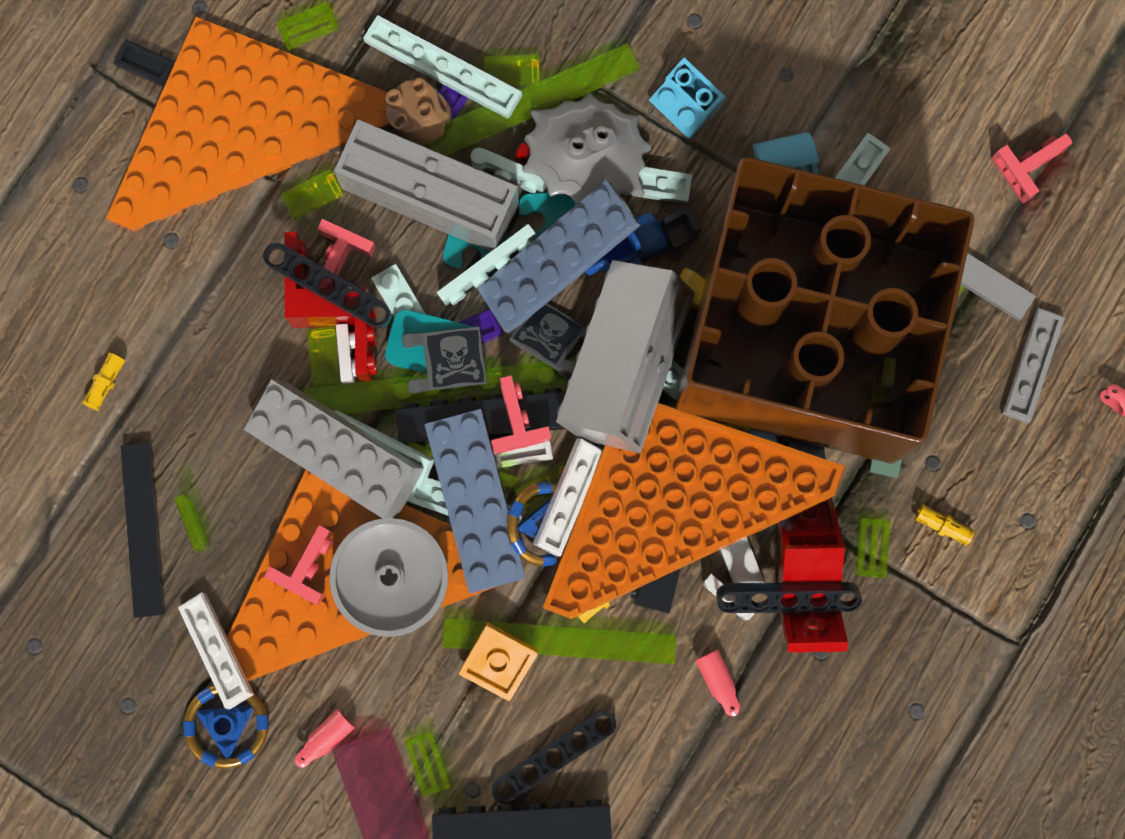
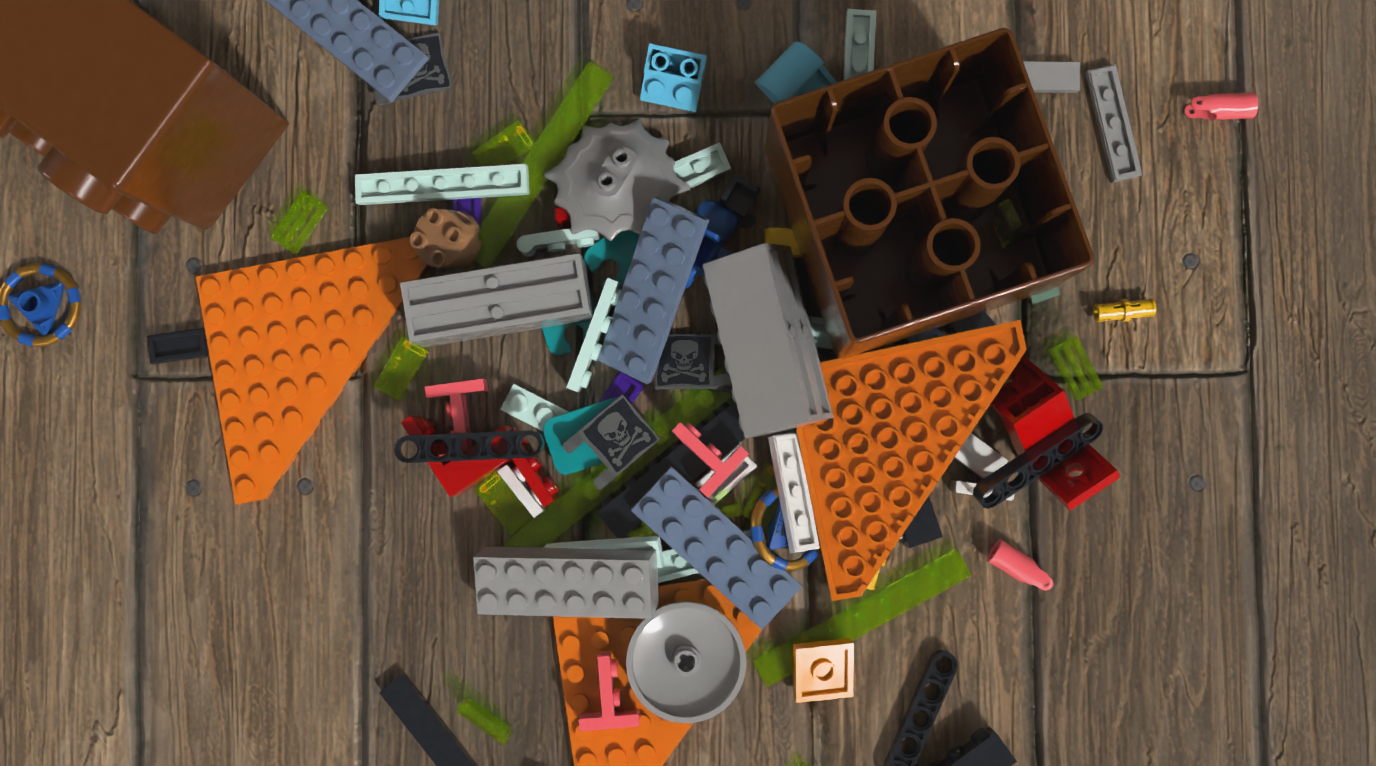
camera: 30 degrees left, 5 degrees up
(103, 381) = (328, 647): yellow pin -> none

